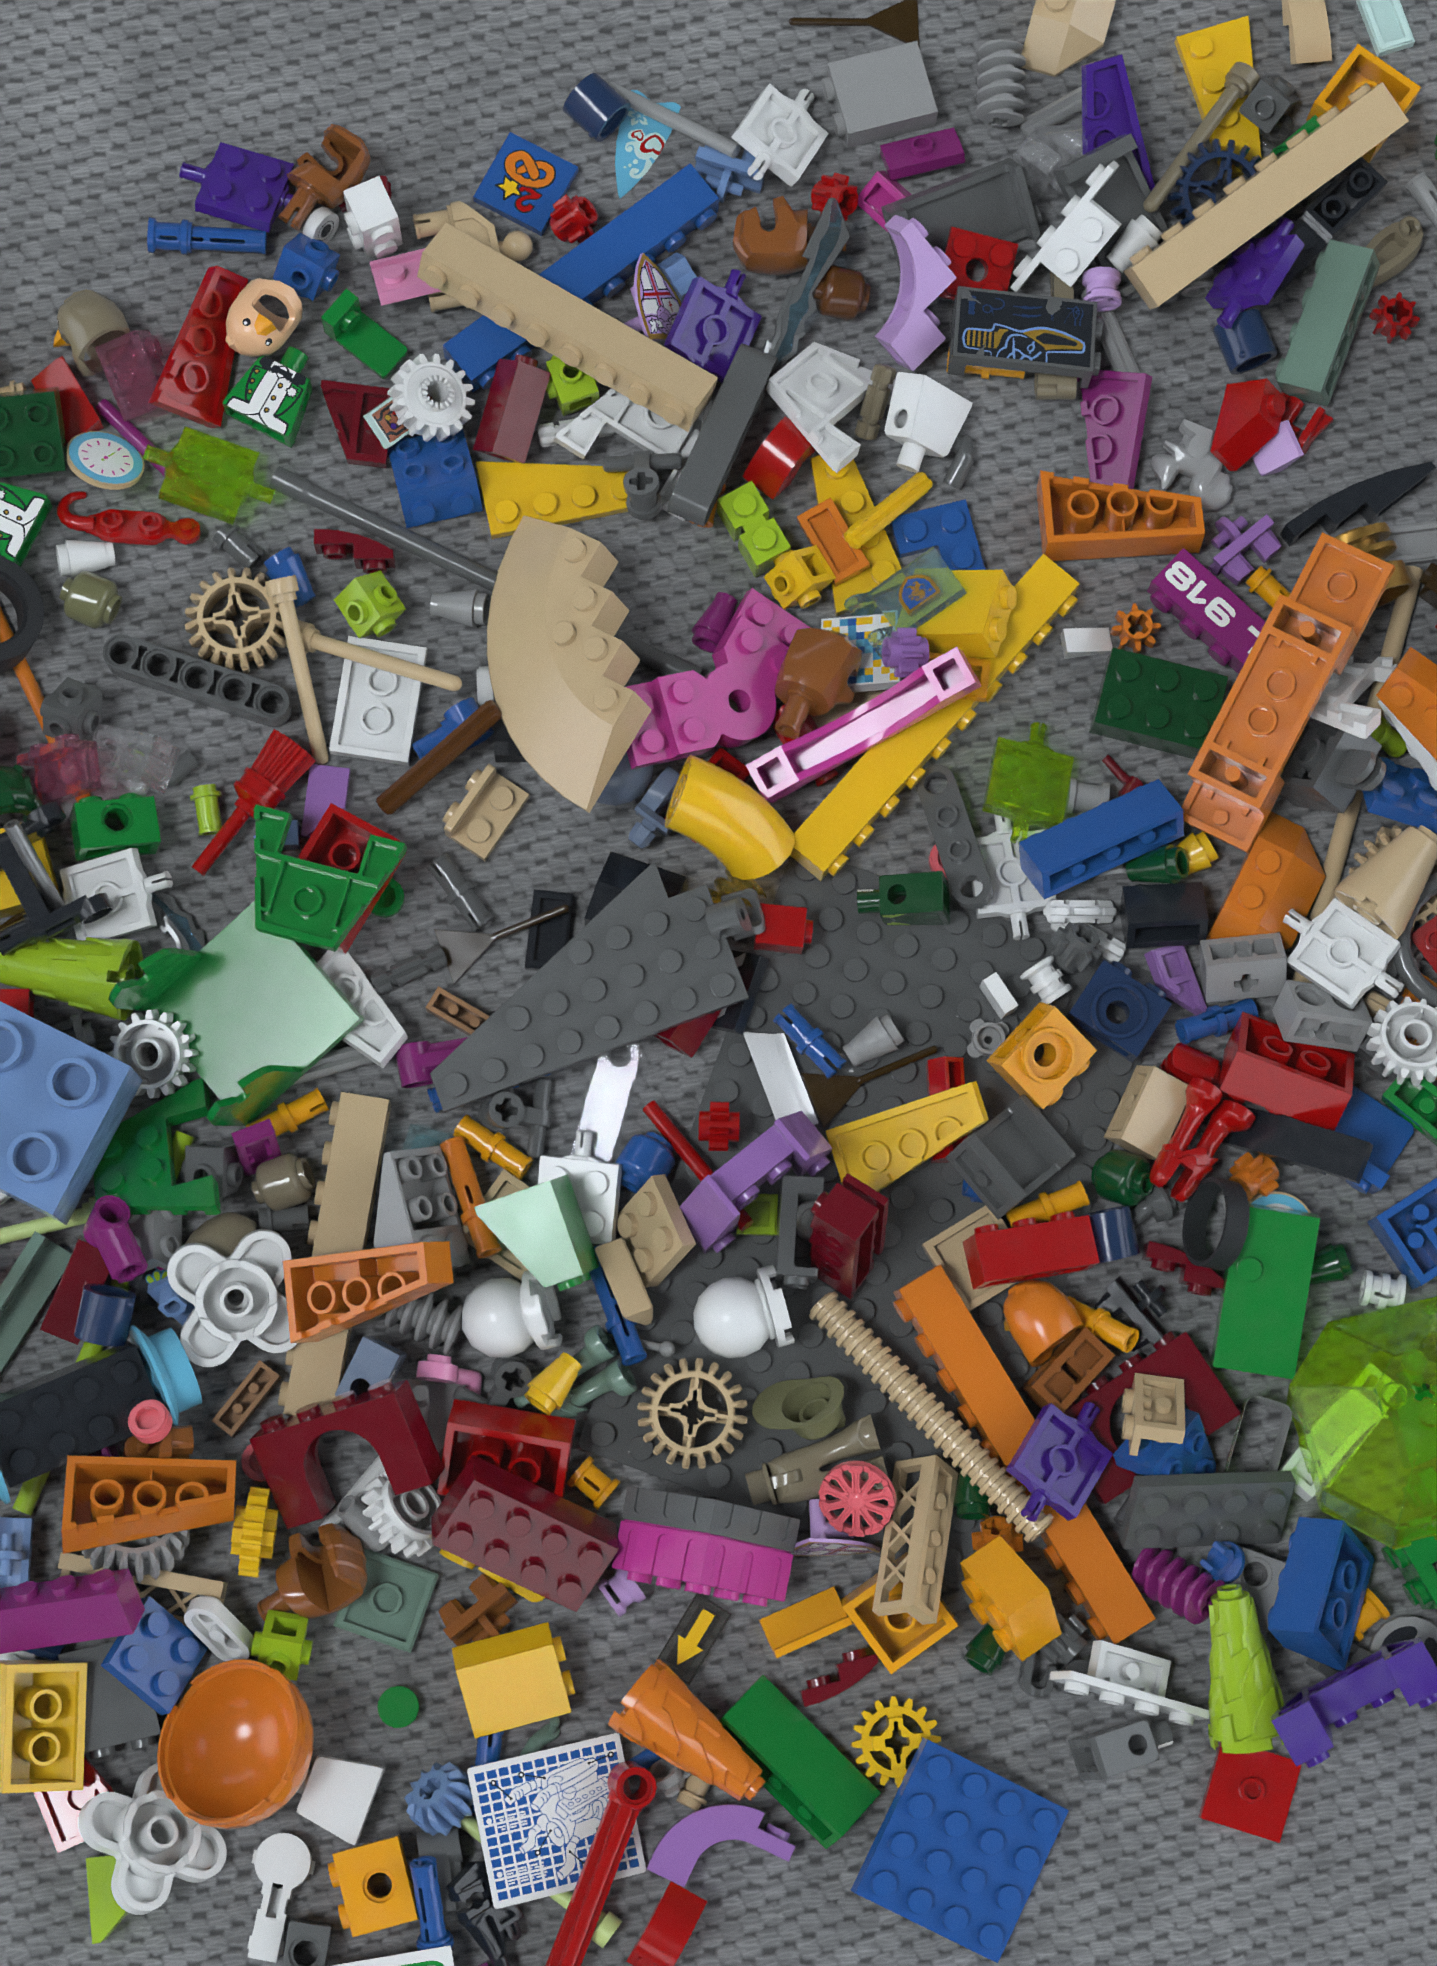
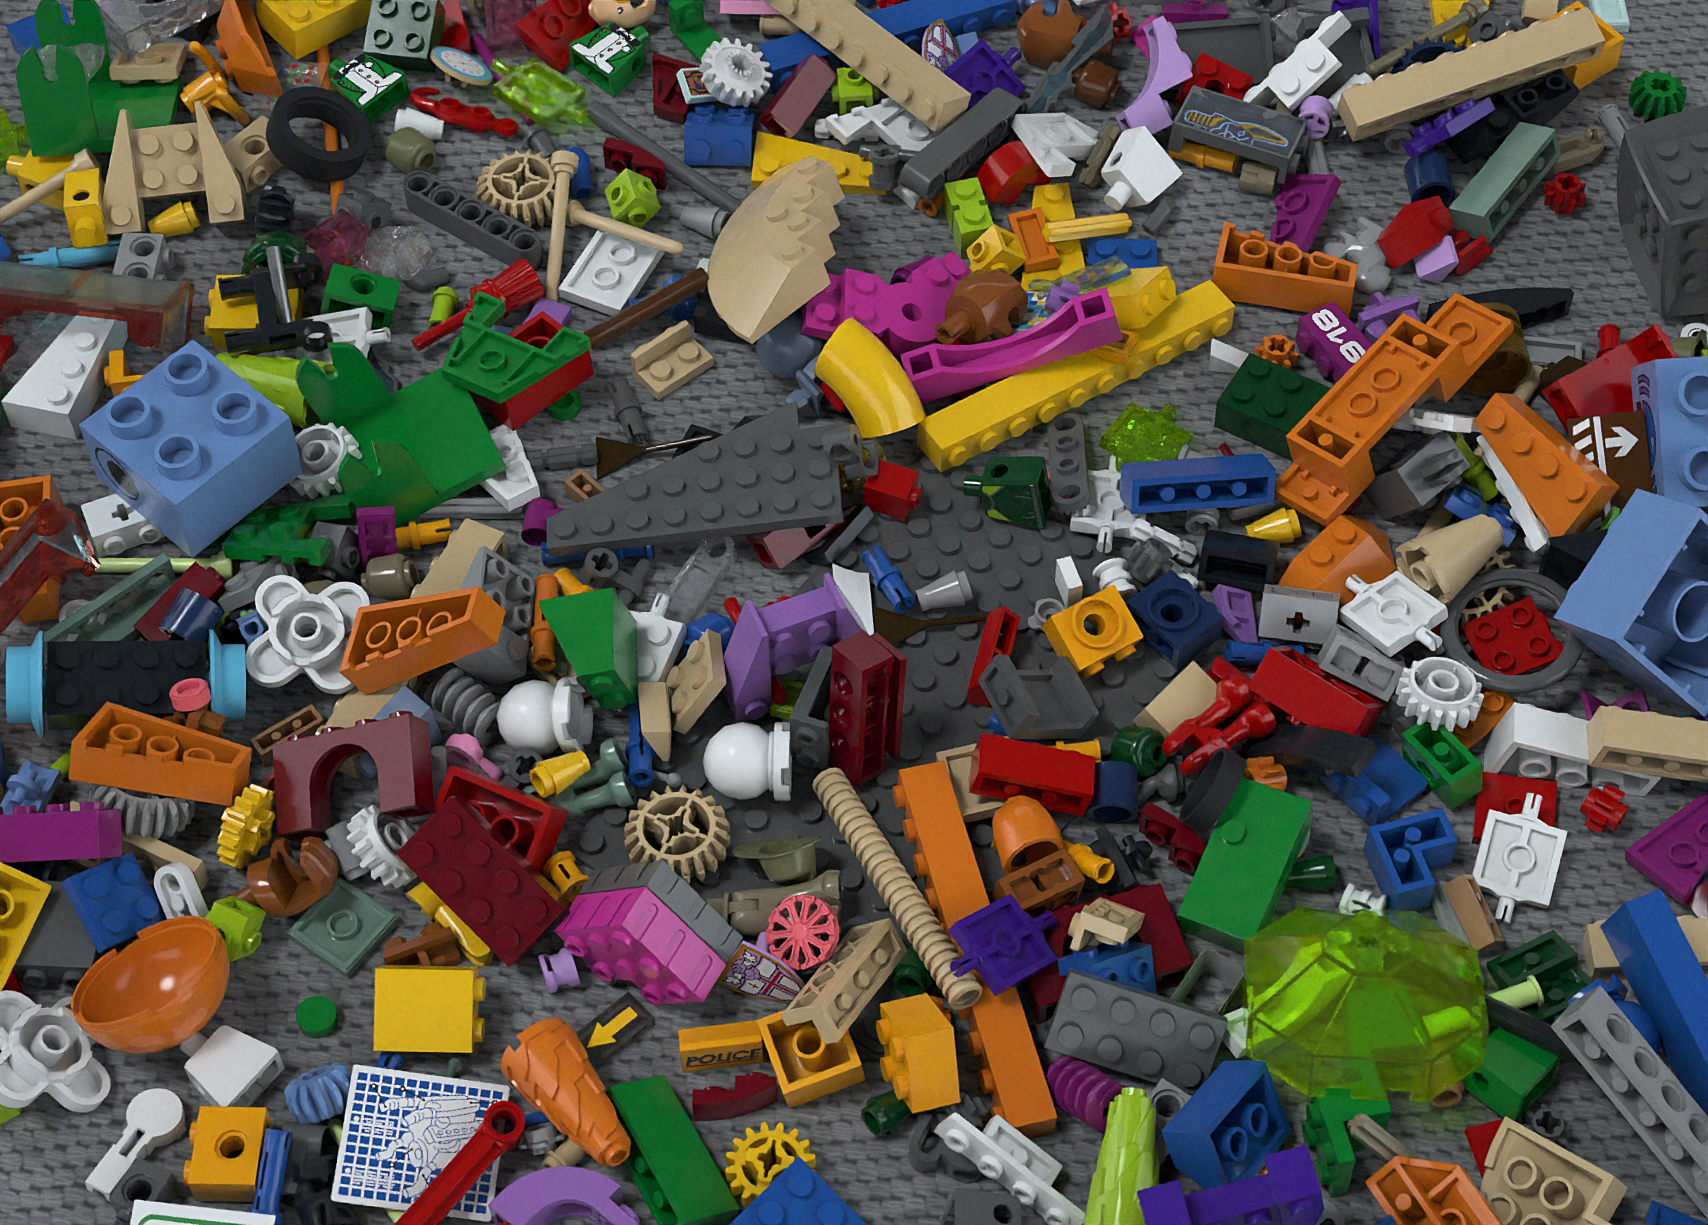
camera: 25 degrees right, 25 degrees down
(110, 1233) = (224, 563): magenta piece -> none
(903, 1137) = (957, 654): yellow wing -> none
(1159, 866) = (1245, 519): dark green cone -> none
(1224, 1561) = (1143, 1077): blue plate -> none

